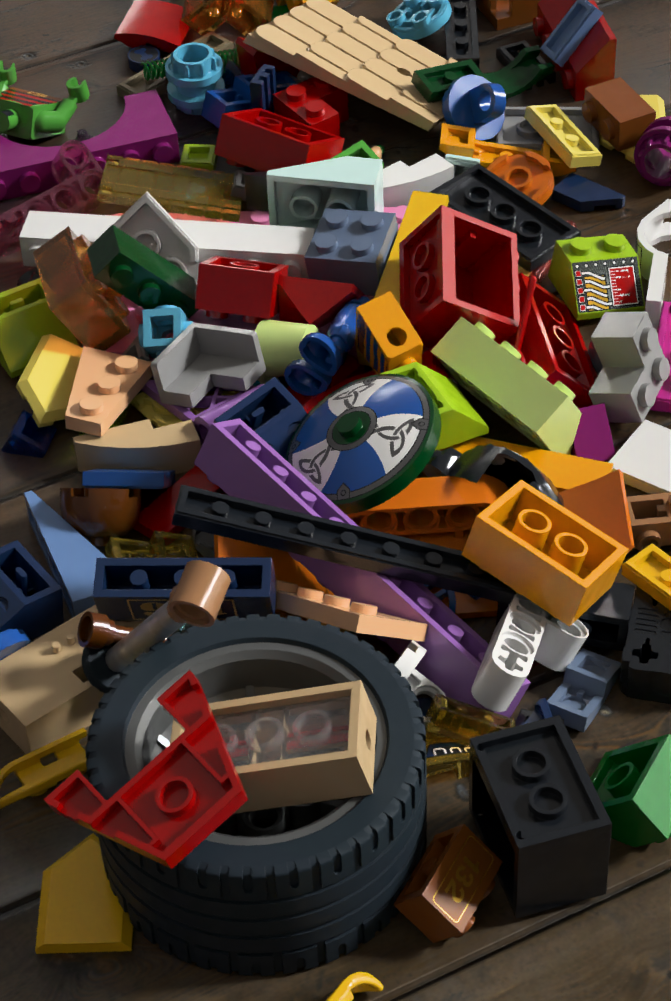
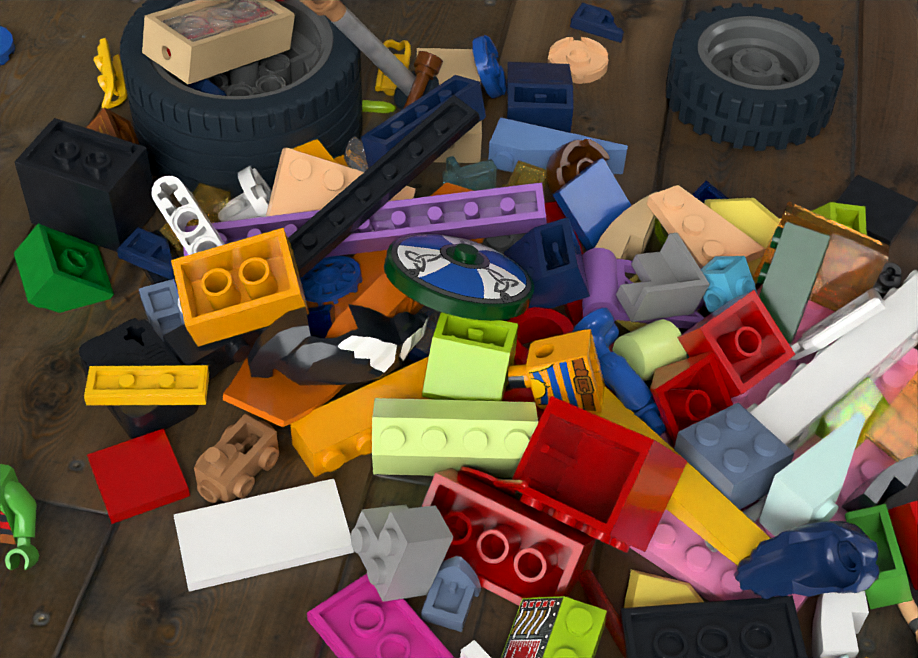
camera: 125 degrees right, 5 degrees up
(397, 174) = (811, 561): none -> dark blue hair
(594, 435) = (381, 487): magenta slope -> none

